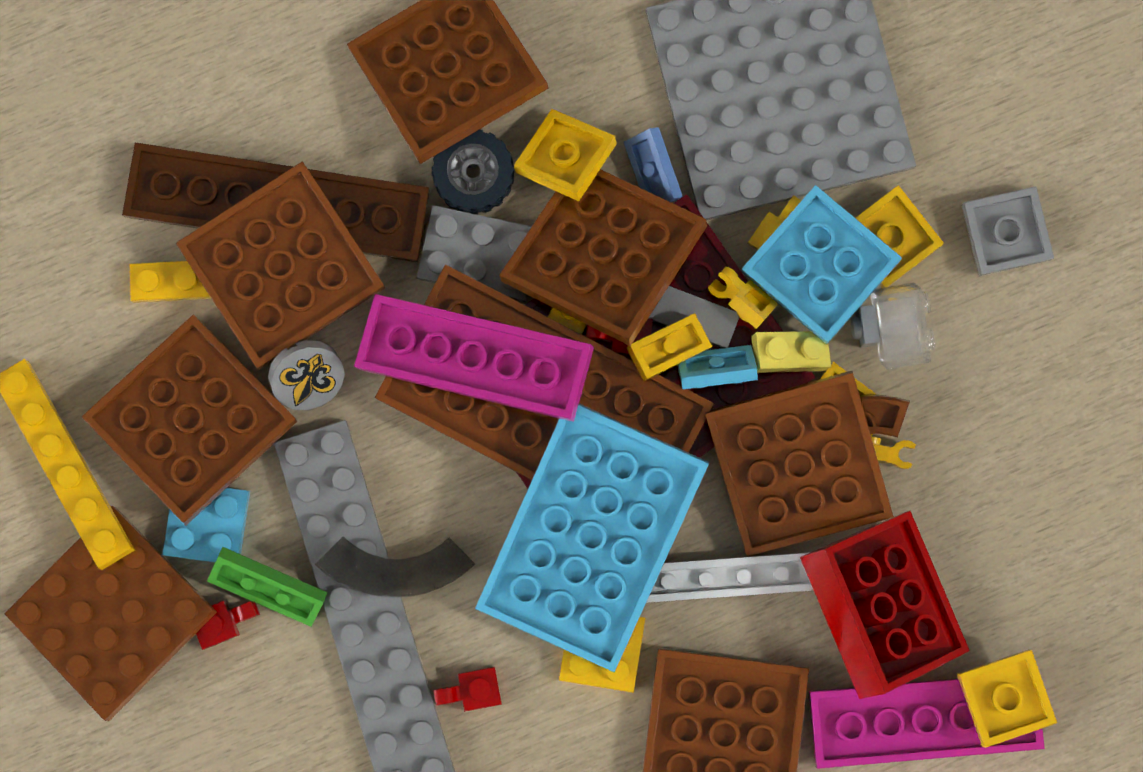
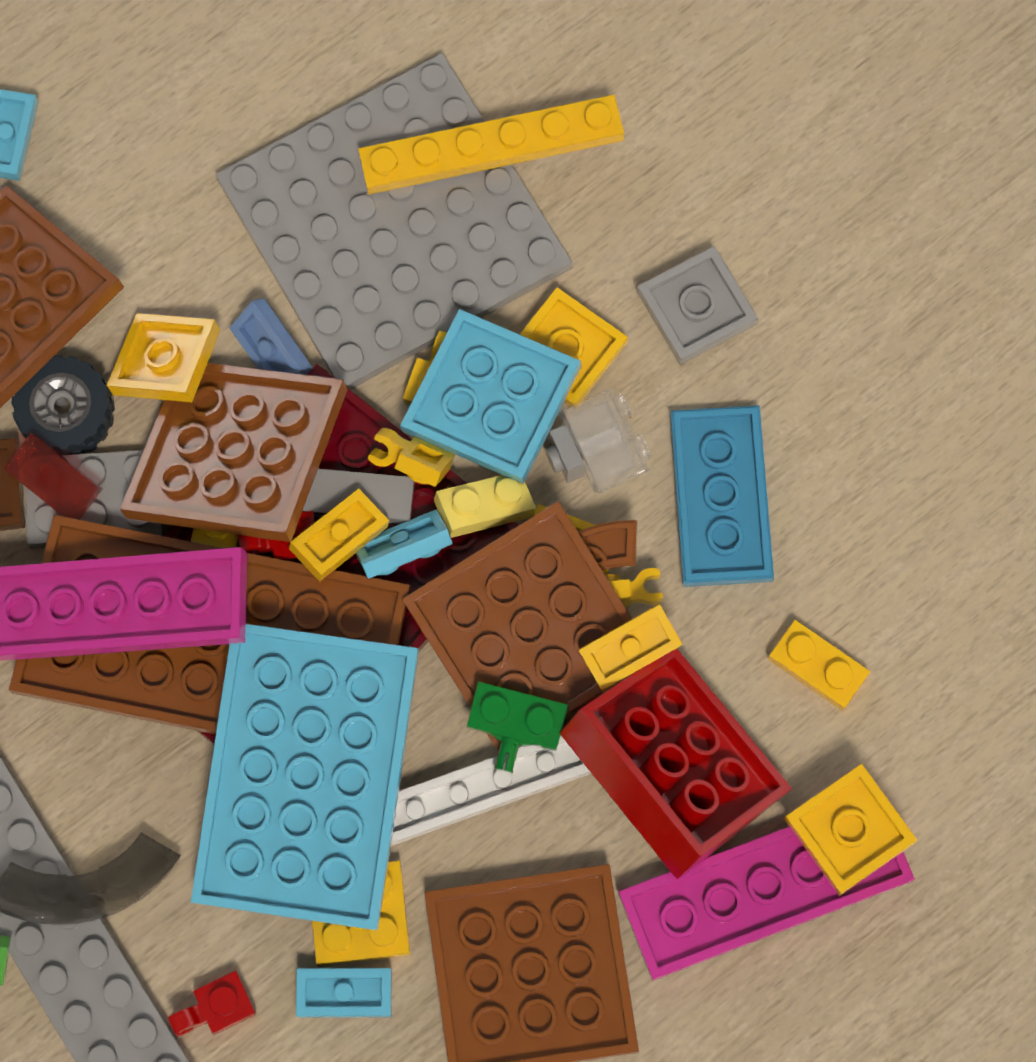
camera: 10 degrees left, 10 degrees down
(451, 232) = (53, 478): none -> clear red plate
(574, 709) = (344, 993): none -> medium azure plate
(767, 536) = (516, 721): none -> green plate
(876, 506) = (630, 647): none -> yellow plate
(879, 48) = (491, 144): none -> yellow plate
(981, 394) = (721, 496): none -> dark azure tile
(1018, 555) = (819, 665): none -> yellow plate

